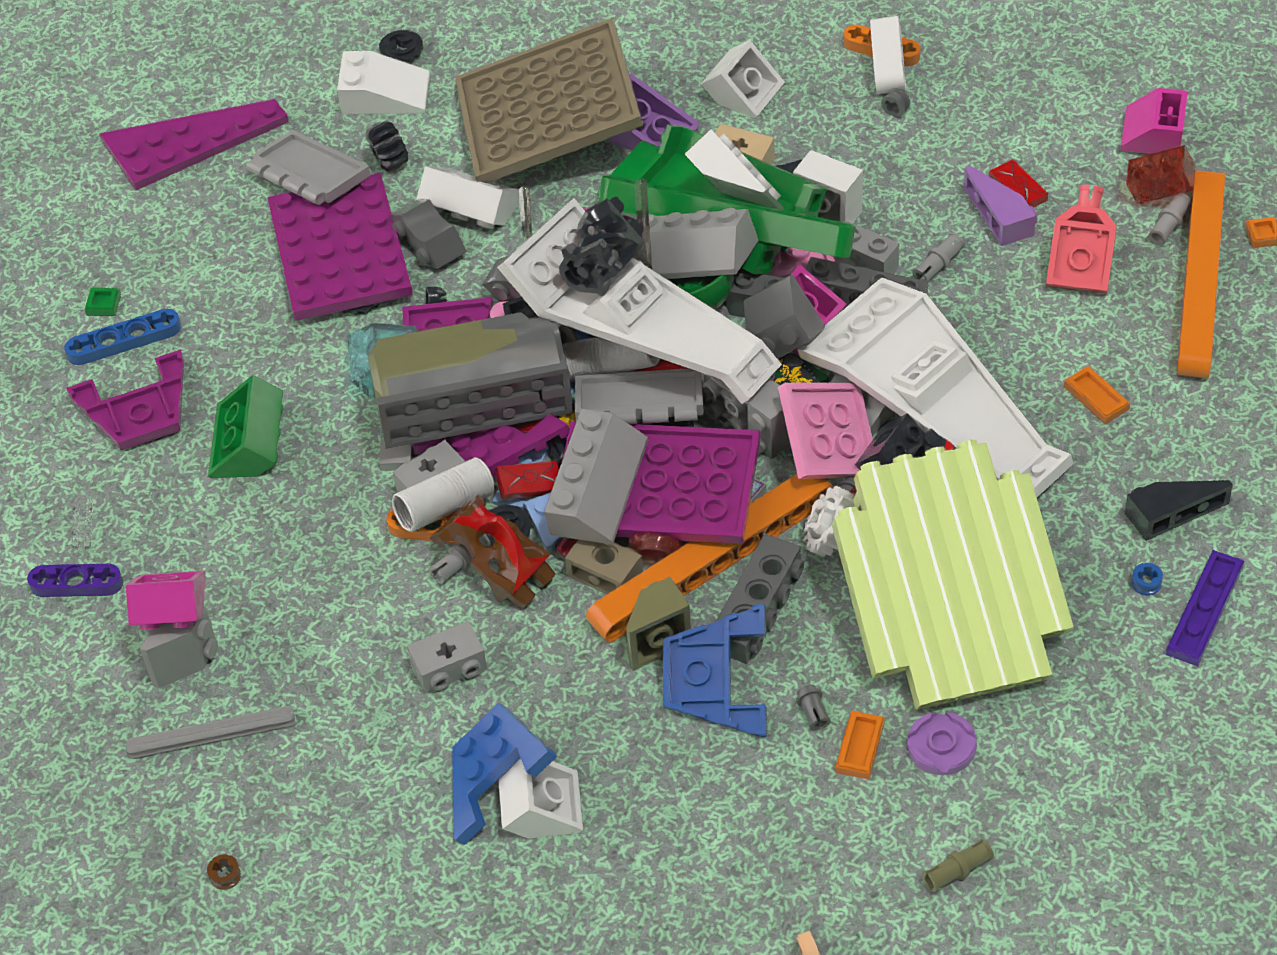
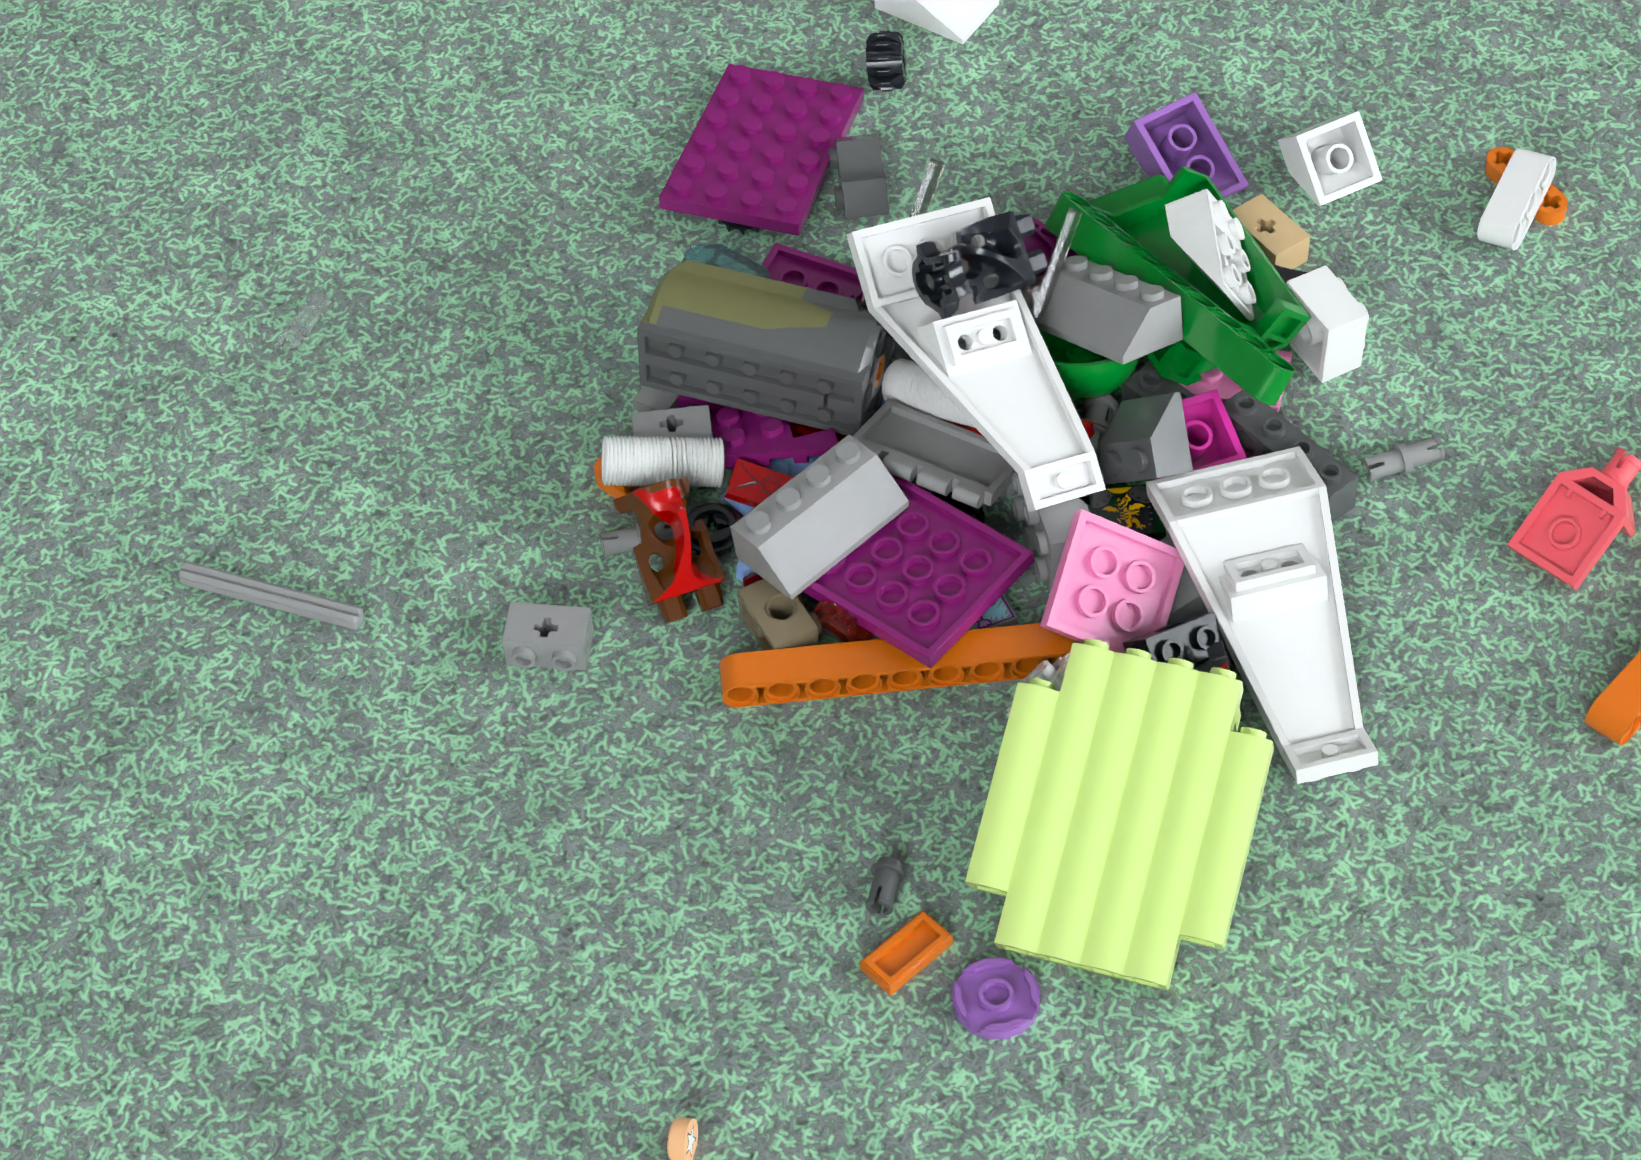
camera: 30 degrees right, 0 degrees up
(64, 572) = (250, 363): dark purple beam -> none
(103, 302) = (490, 102): green tile -> none
(121, 332) = (483, 143): blue beam -> none
(140, 413) = (443, 234): magenta wing -> none
(165, 599) = (294, 431): dark pink slope -> none
(178, 652) = (294, 486): light grey slope -> none
(229, 880) = (180, 732): reddish brown bush -> none
(246, 430) = (528, 302): green slope -> none
(308, 167) = (789, 50): light grey hinge -> none
(434, 295) = (820, 245): black hinge -> none
(466, 197) = (918, 134): white slope -> none
(484, 757) = (504, 756): blue wing -> none
(541, 803) = (531, 830): white slope -> none
(547, 101) = (1085, 85): dark tan plate -> none
(656, 615) = (775, 708): olive slope -> none
(700, 672) = (790, 782): blue wing -> none
(765, 578) = (935, 719): dark grey brick -> none
(872, 251) = (1320, 411): light grey brick -> none
(895, 102) = (1489, 258): dark grey bush -> none
(958, 865) = (908, 1138): olive pin -> none
(1001, 207) = (1520, 436): medium lavender slope -> none
(1018, 180) = (1564, 418): red tile -> none
(1097, 394) = (1471, 701): orange tile -> none
(1145, 588) = (1373, 947): blue bush -> none
(1172, 504) = (1455, 867): black slope -> none
(1205, 608) = (1410, 1004): dark purple tile -> none

